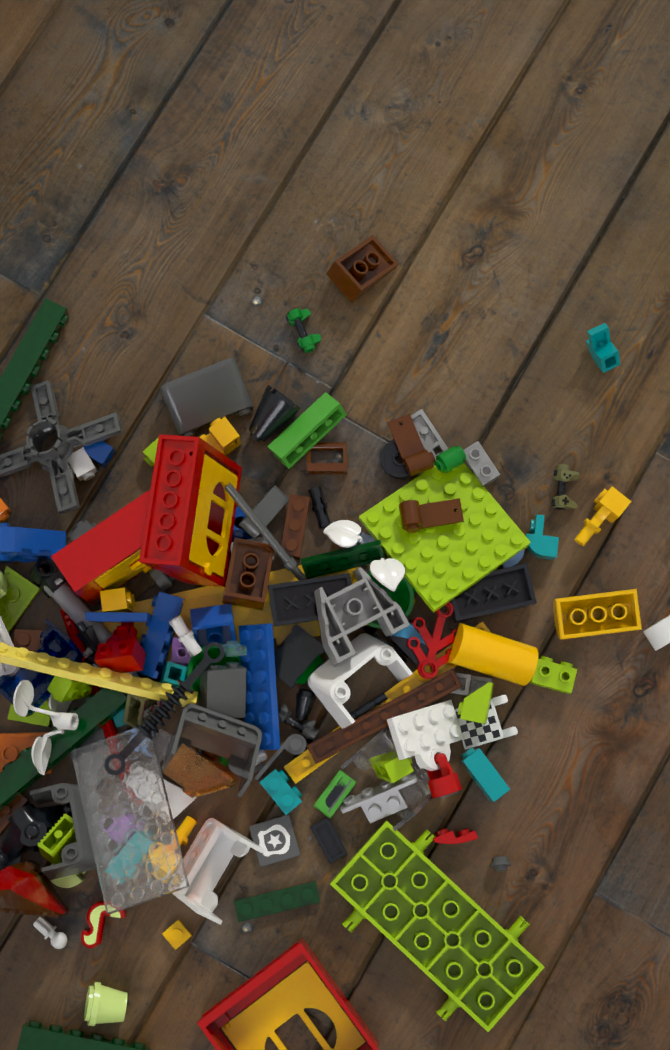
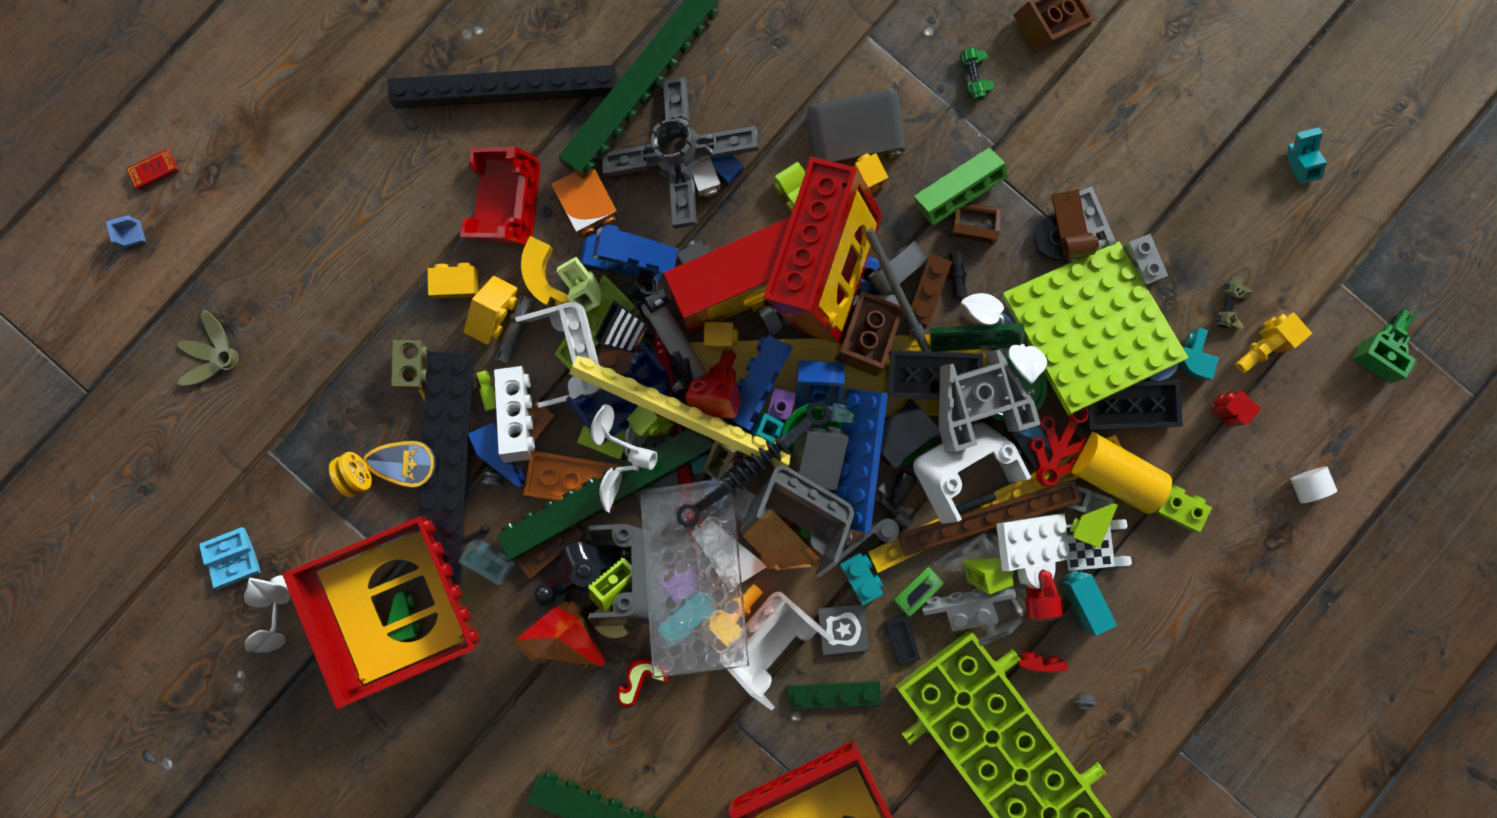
camera: 10 degrees right, 5 degrees up
(31, 611) = (622, 329): none -> black torso
(58, 939) = (591, 690): white axle -> none
(104, 1005) = (629, 770): yellowish green piece -> none
(117, 617) = (718, 354): blue tile -> none
(177, 934) = (719, 709): yellow plate -> none
(185, 636) = (789, 389): white pin -> none
(271, 414) = (925, 160): black cone -> none
(429, 515) = (1068, 305): reddish brown door -> none
(450, 459) = (1115, 248): green brick -> none
(580, 578) = (1235, 408): none -> red brick
(597, 614) = (1244, 451): yellow brick -> none

